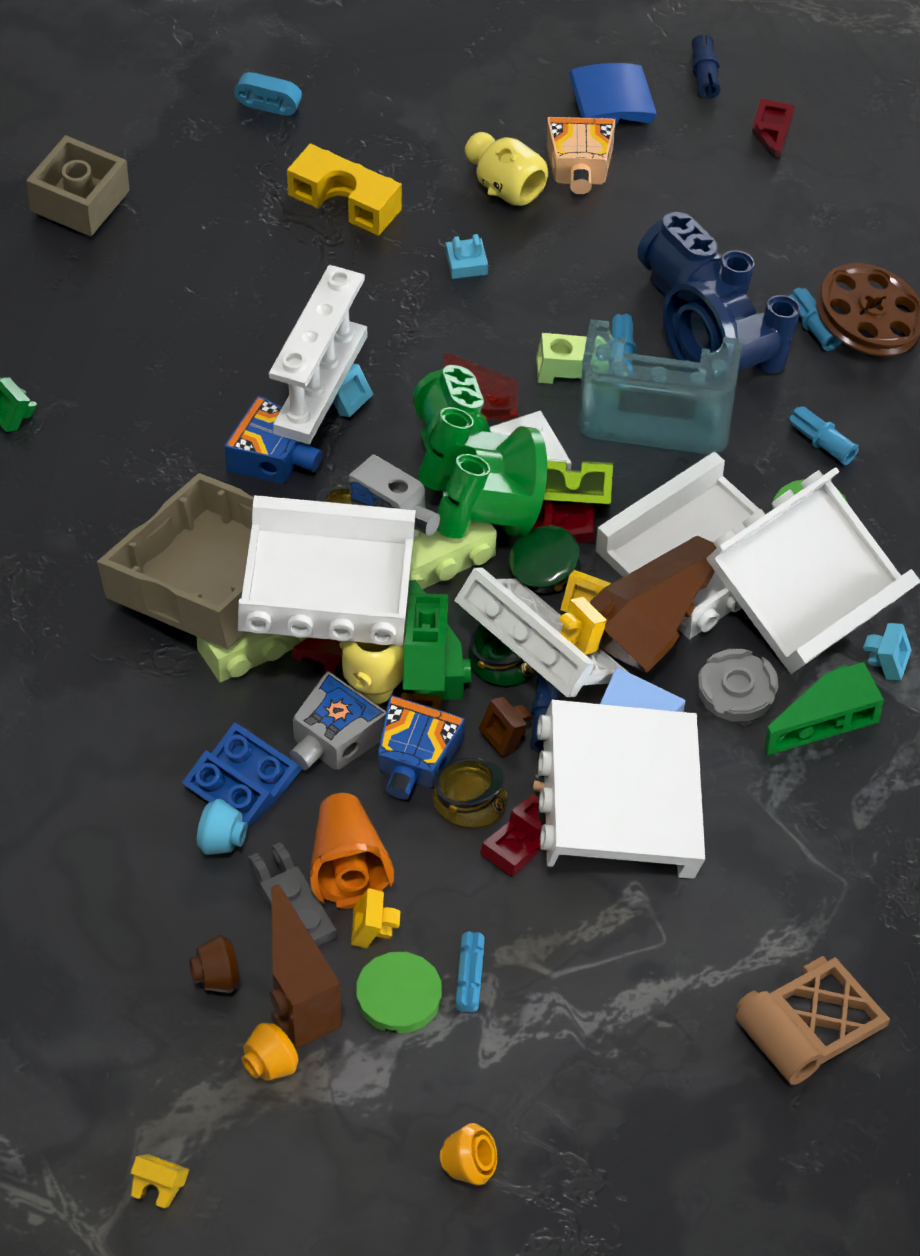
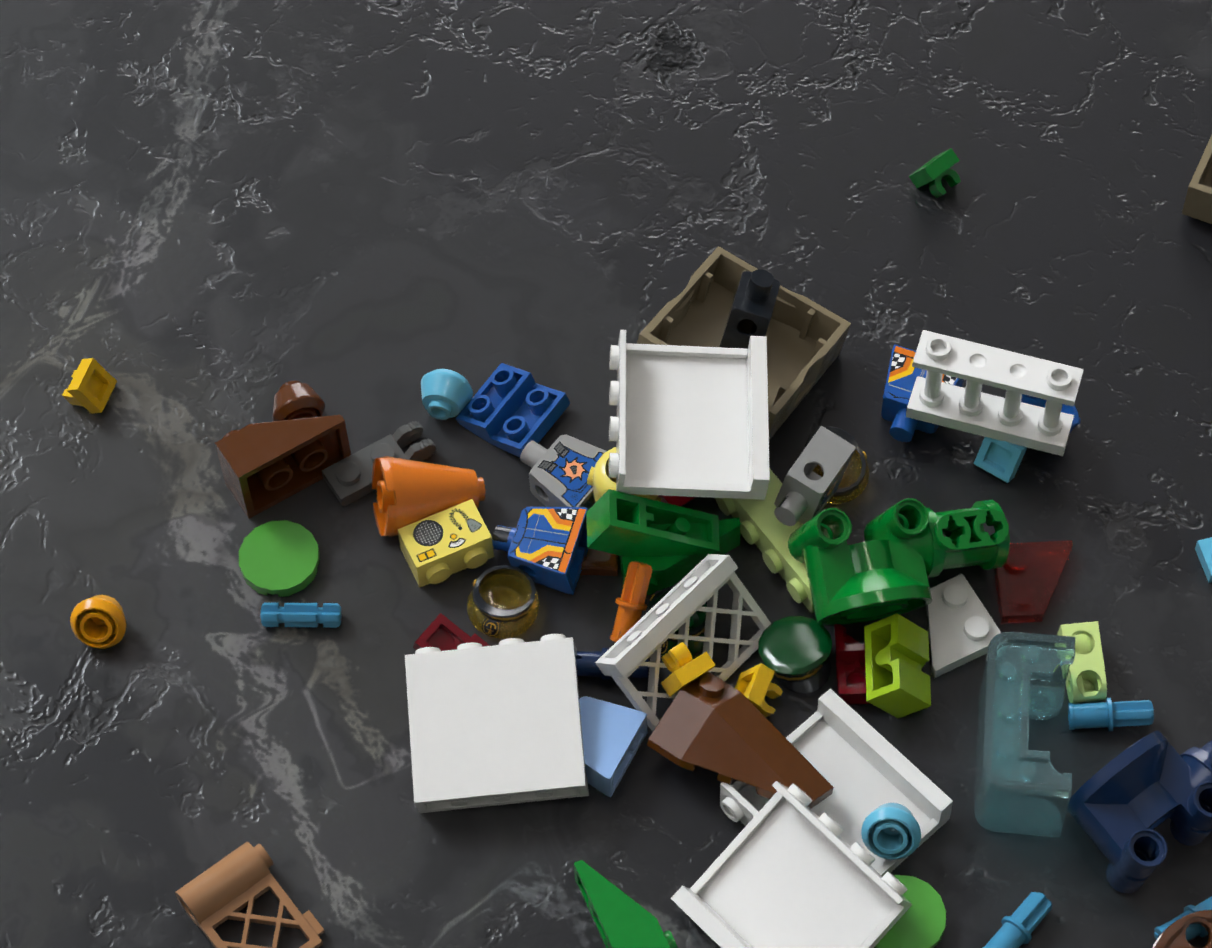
camera: 90 degrees right, 5 degrees up
(186, 543) = (752, 301): none -> black torso
(269, 1053) = (202, 457): light orange cone -> none
(372, 919) = (350, 524): yellow tile -> none
(405, 833) = (446, 543): none -> light yellow brick
(492, 675) = (632, 598): none -> orange axle
(504, 725) = (582, 626): reddish brown tile -> none
(737, 685) = (659, 847): light grey tile -> none
(740, 496) = (891, 832): none -> medium azure cone

